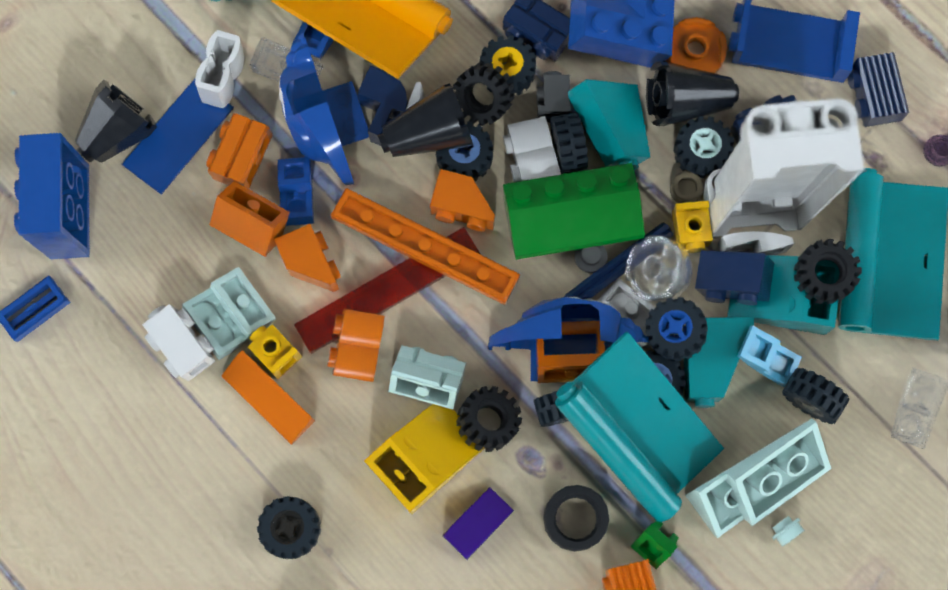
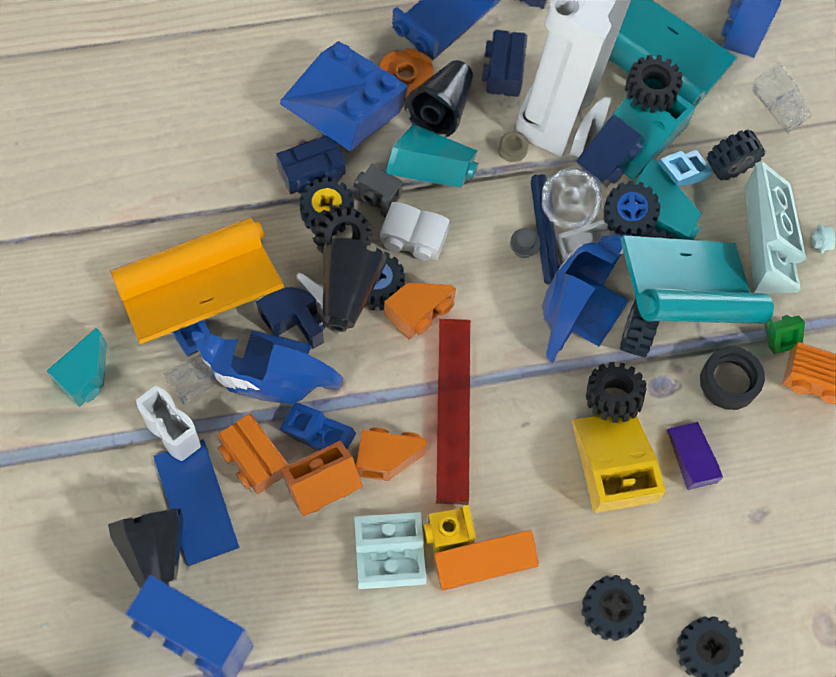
camera: 65 degrees left, 10 degrees down
(172, 334) = (399, 603): white brick -> none
(357, 344) = (490, 456): orange brick -> none
(425, 246) = (436, 356): orange tile -> none
(427, 376) = (552, 417): light aqua brick -> none
(568, 366) = (612, 303): orange tile -> none
(569, 143) = (428, 194): black wheel -> none
(573, 211) = (484, 230): green slope -> none
(688, 213) = (547, 157): yellow brick -> none
(707, 136) = (496, 105): black wheel -> none

